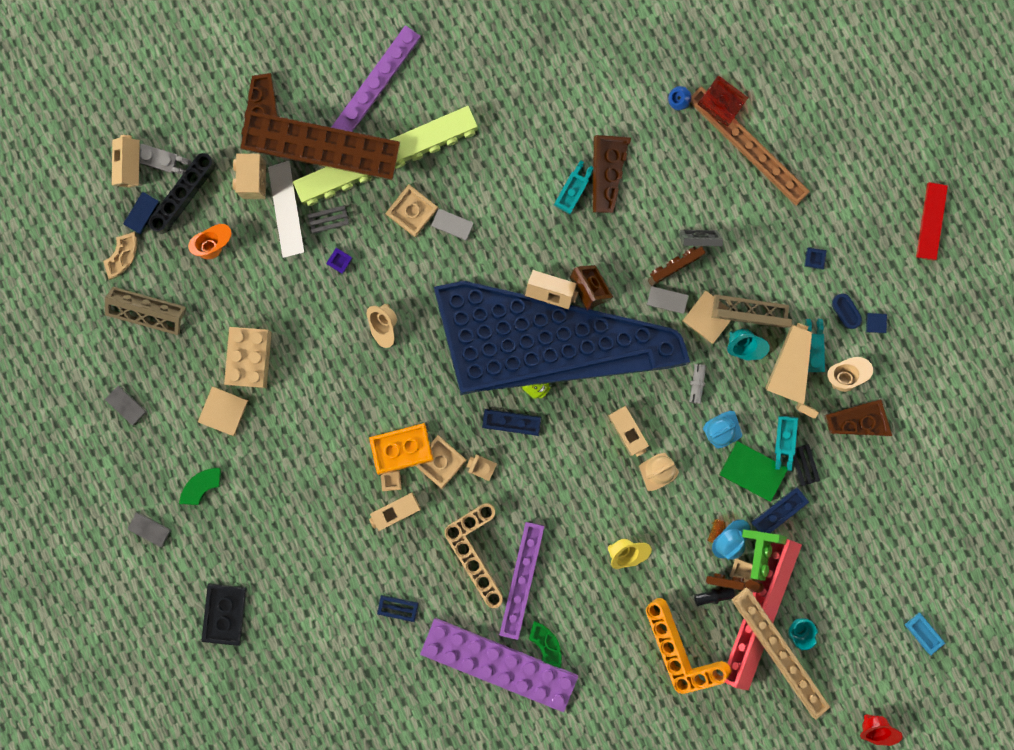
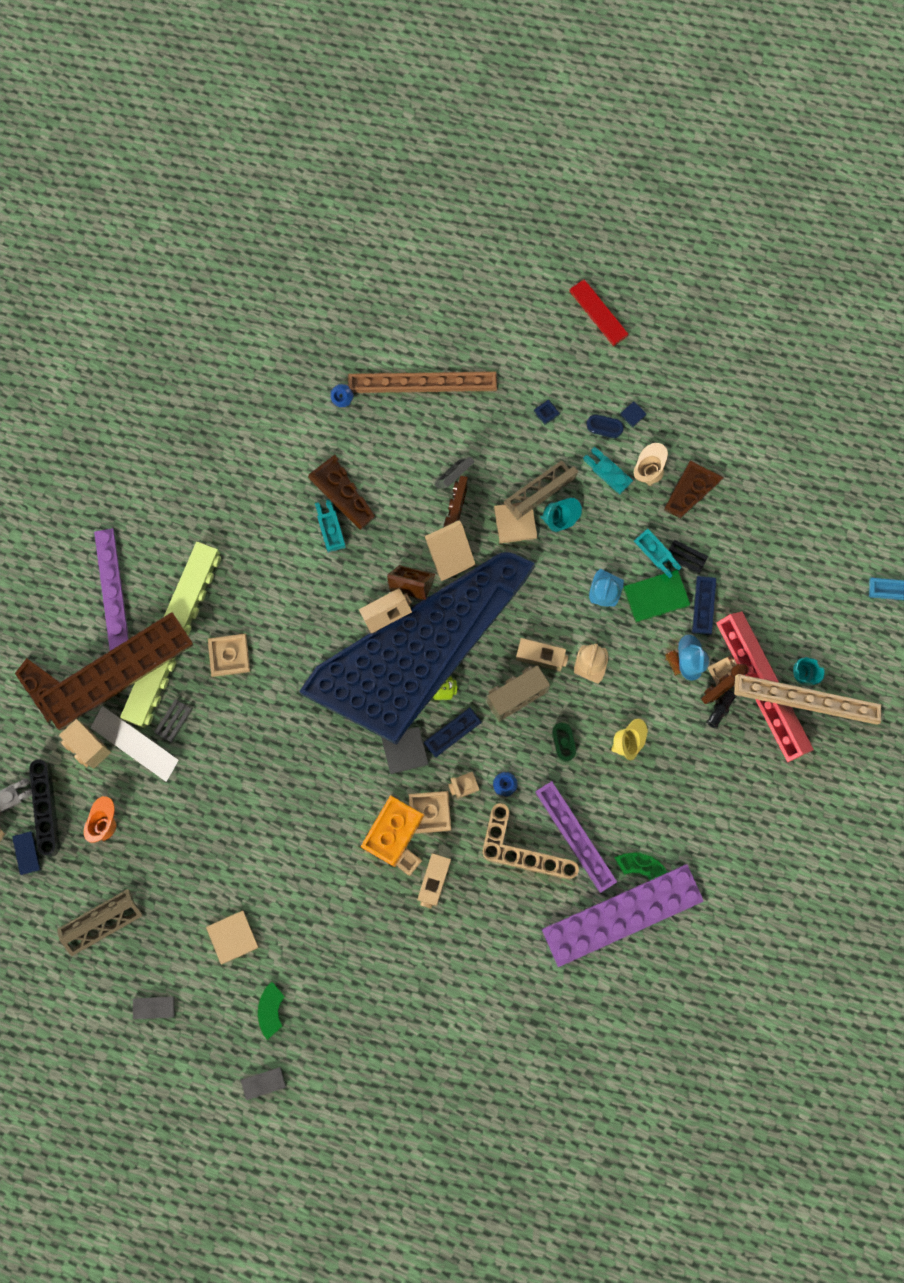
camera: 45 degrees left, 10 degrees down
(123, 255) = (42, 899): tan tile -> none
(224, 614) = (383, 1089): black tile -> none
(247, 357) = (212, 878): tan brick -> none
(339, 261) = (211, 741): dark purple plate -> none
(381, 322) = (288, 755): tan piece -> none
(401, 601) = (521, 941): dark blue tile -> none
(452, 224) = (268, 636): light grey tile -> none
(465, 407) = (407, 753): none -> dark grey tile
(517, 494) = (511, 785): none -> blue plate
(581, 507) = (564, 742): none -> dark green plate
(583, 441) = (517, 692): none -> dark tan brick
(639, 293) = (450, 550): none -> tan tile
(667, 300) = (479, 536): light grey tile -> none
(678, 653) = (739, 774): light orange beam -> none
(697, 384) = (555, 574): light grey pin -> none
(722, 101) = (373, 369): clear red tile -> none
(762, 551) = (719, 640): bright green bracket -> none
(791, 367) = (606, 496): tan slope -> none
(807, 410) = (648, 517): tan tile -> none

